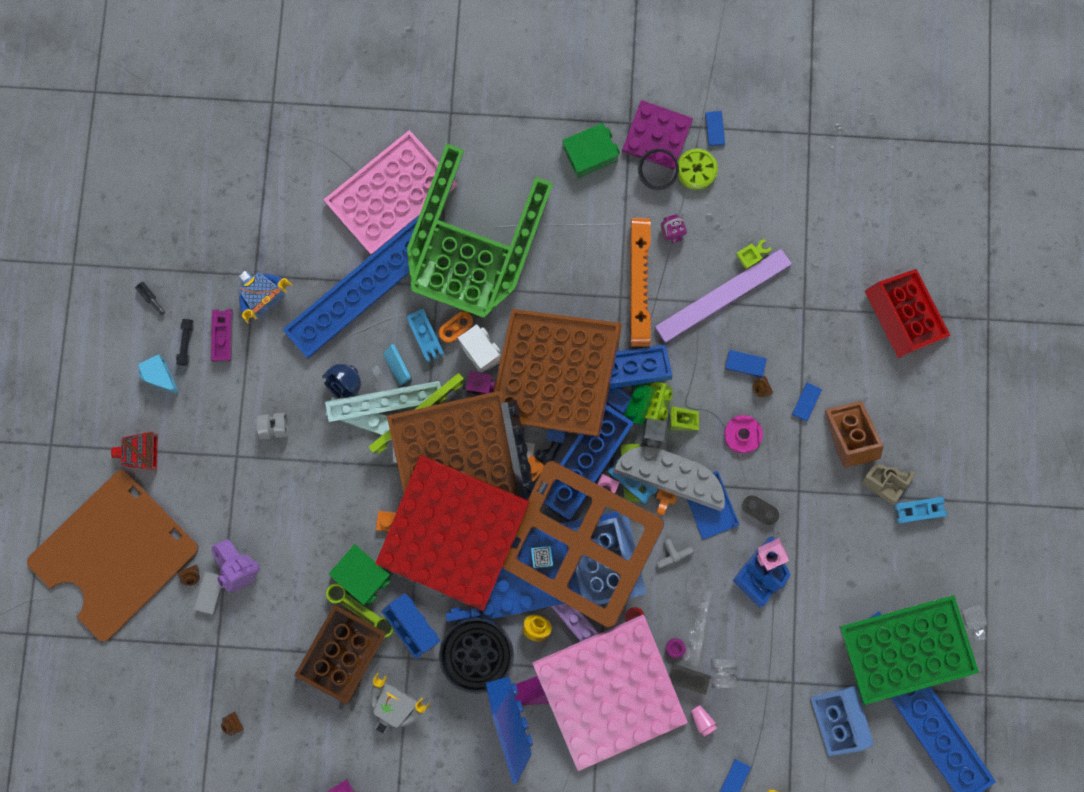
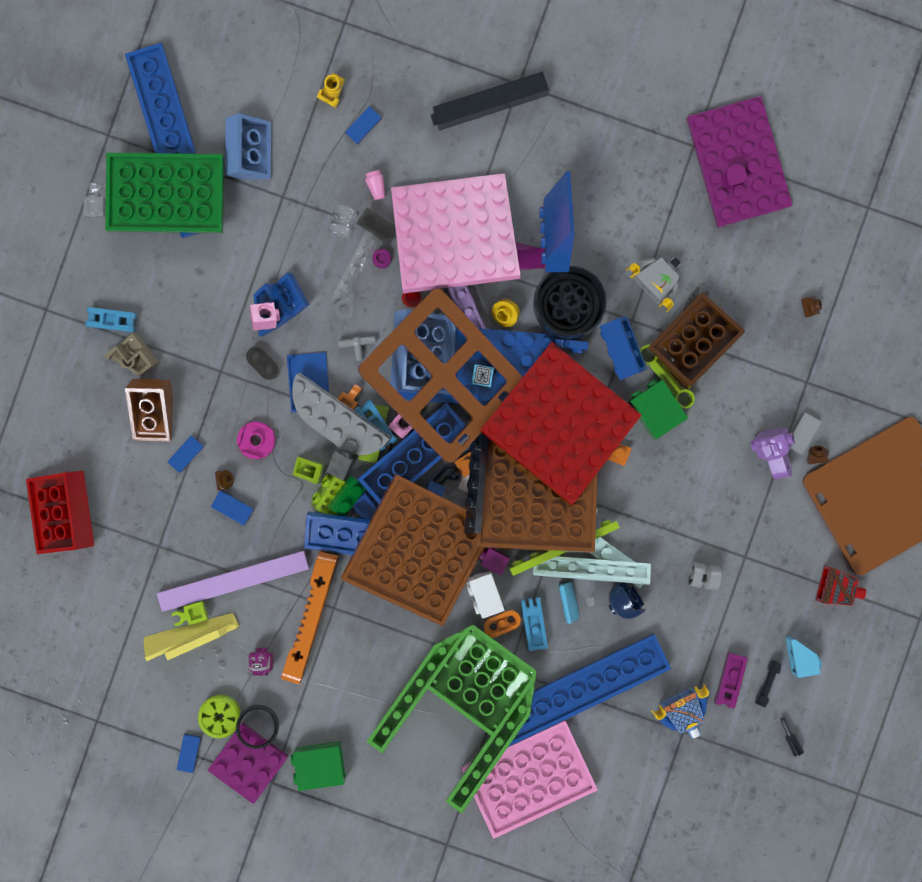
camera: 160 degrees left, 10 degrees up
(749, 231) = (185, 638): none -> light yellow wedge

